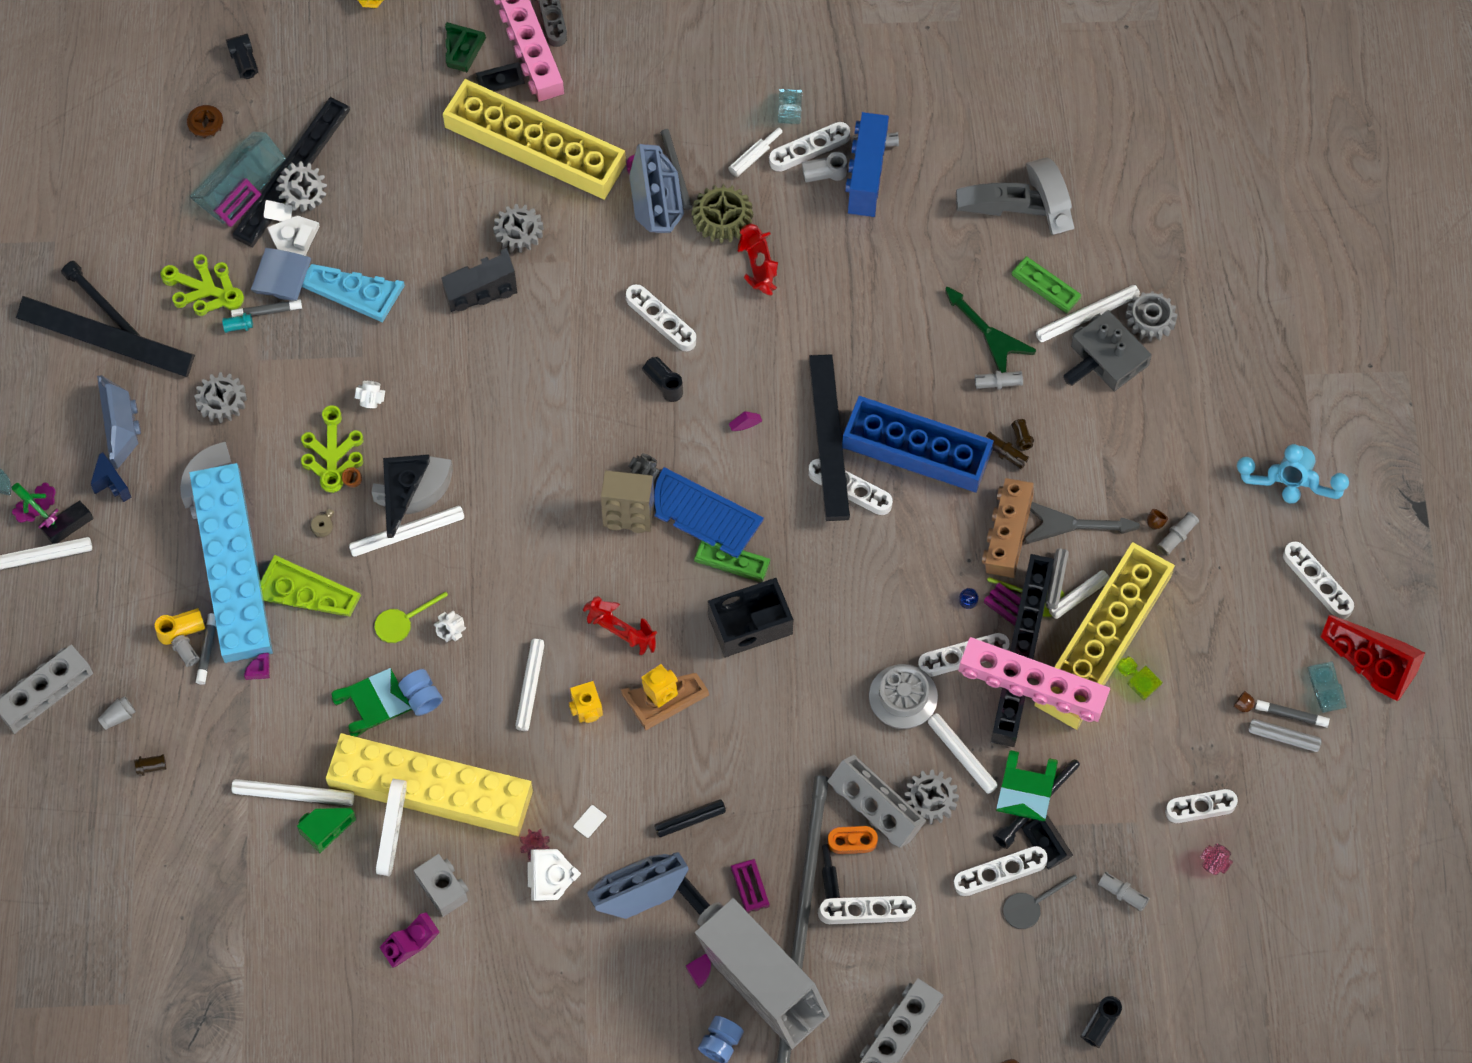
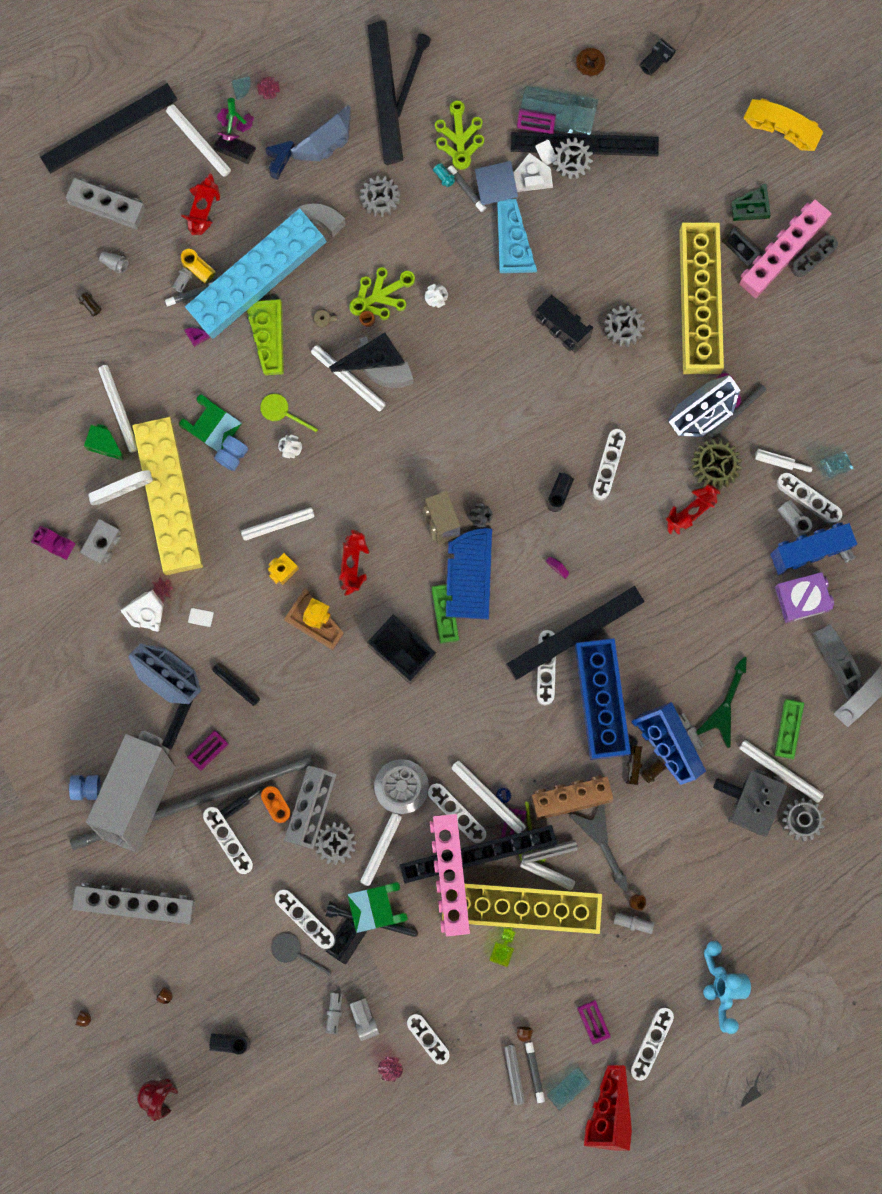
camera: 60 degrees right, 15 degrees up
(21, 451) = (268, 87): none -> clear pink gear
(126, 599) = (198, 219): none -> red piece
(913, 201) = (804, 597): none -> medium lavender brick
(963, 611) = (474, 783): none -> white axle
(995, 398) = (671, 742): none -> blue wedge
(1154, 863) = (365, 1023): none -> light grey piece
(1266, 627) = (587, 1006): none -> magenta tile

